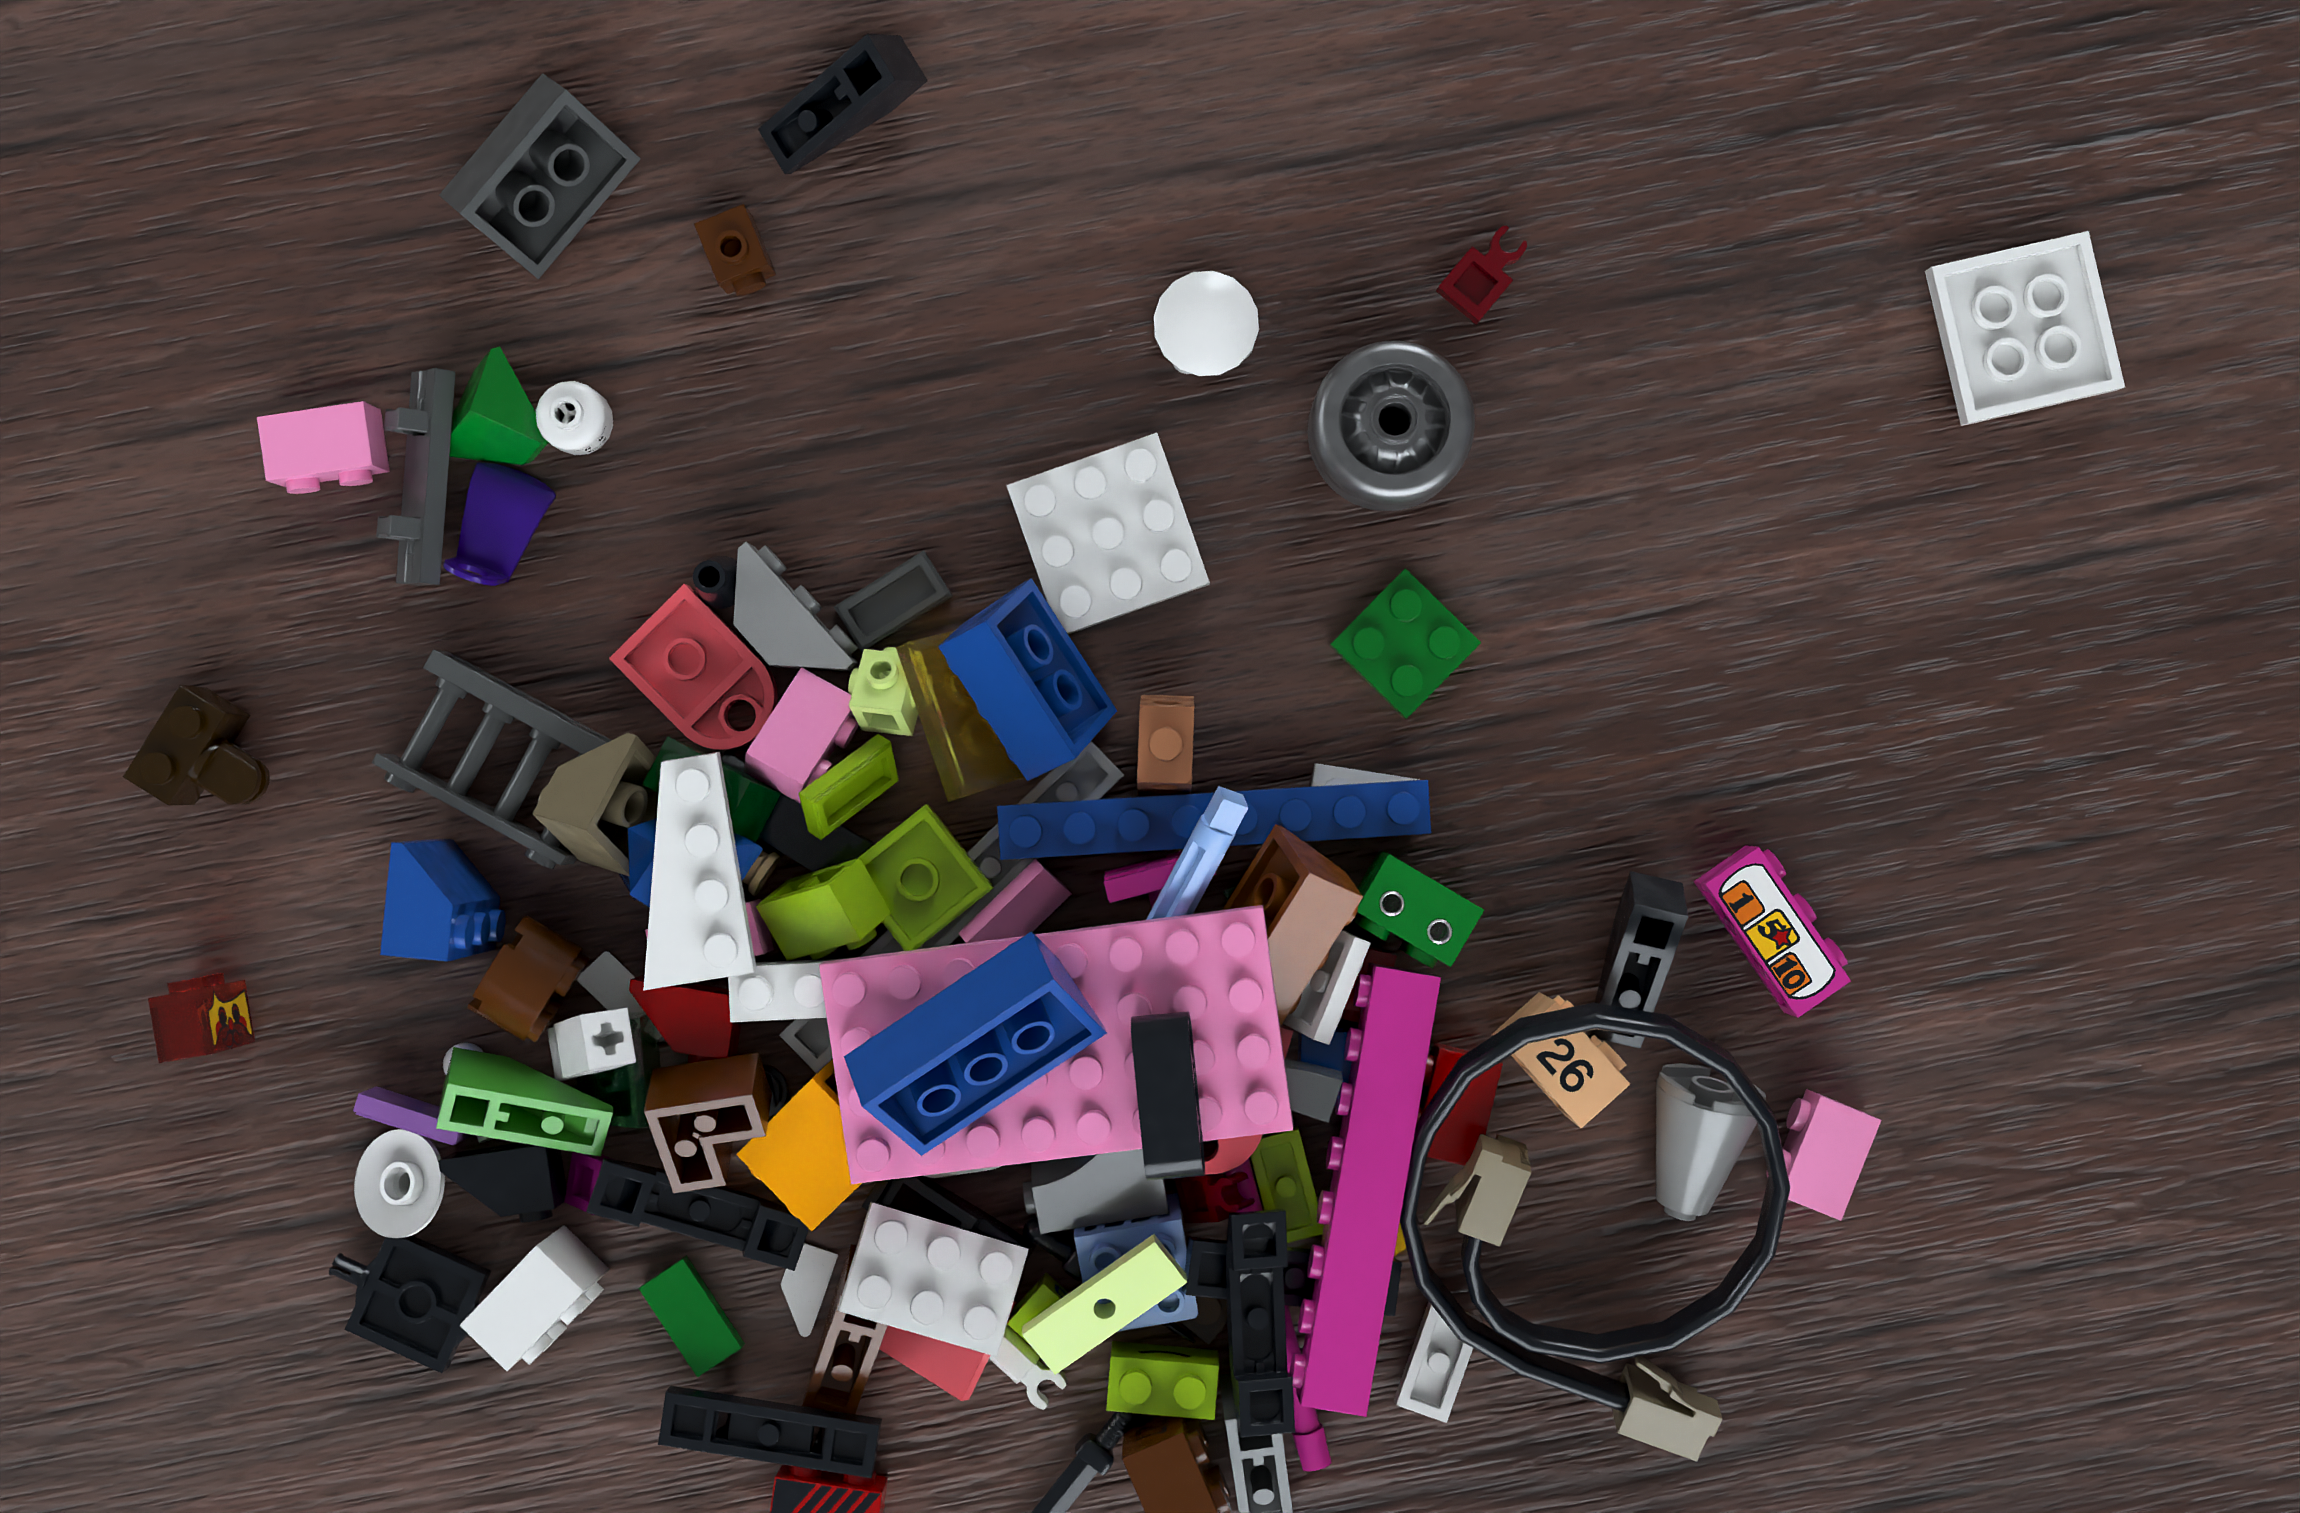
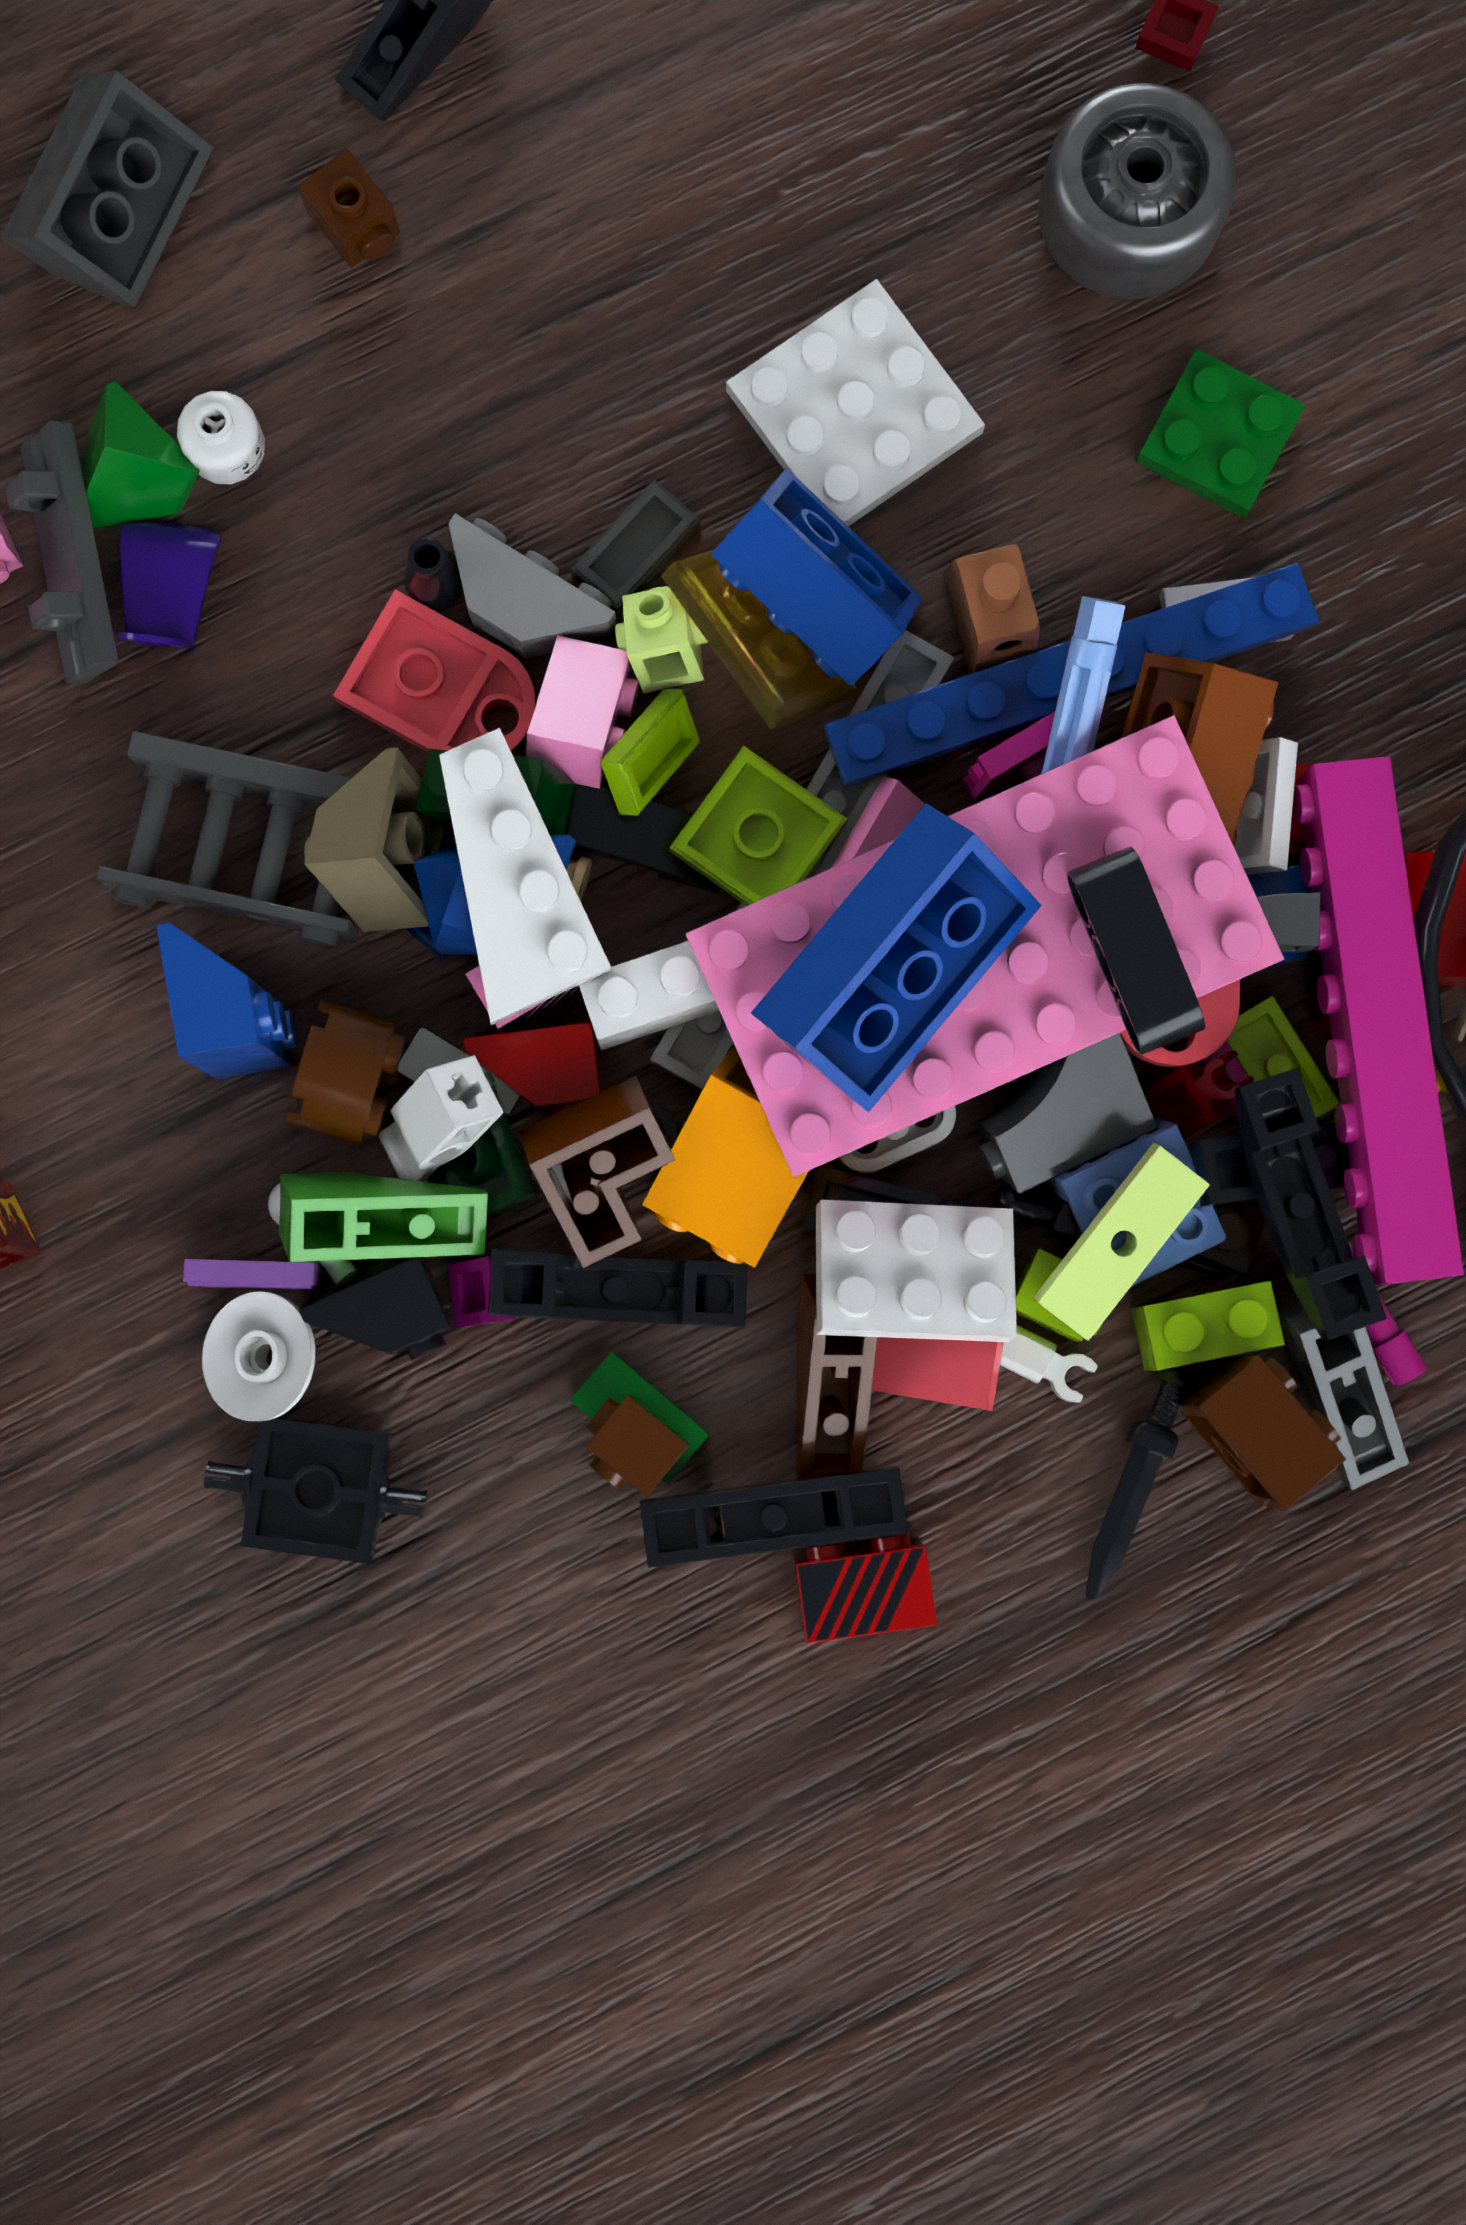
camera: 20 degrees left, 5 degrees down
(526, 1308) = (457, 1436): white brick -> none
(675, 1344) = (632, 1445): none -> reddish brown brick
(807, 1285) = (761, 1345): white sticker -> none
(824, 911) = (665, 894): lime brick -> none
(1206, 323) = (894, 150): white dish -> none
(1416, 909) = (1336, 700): green piece -> none

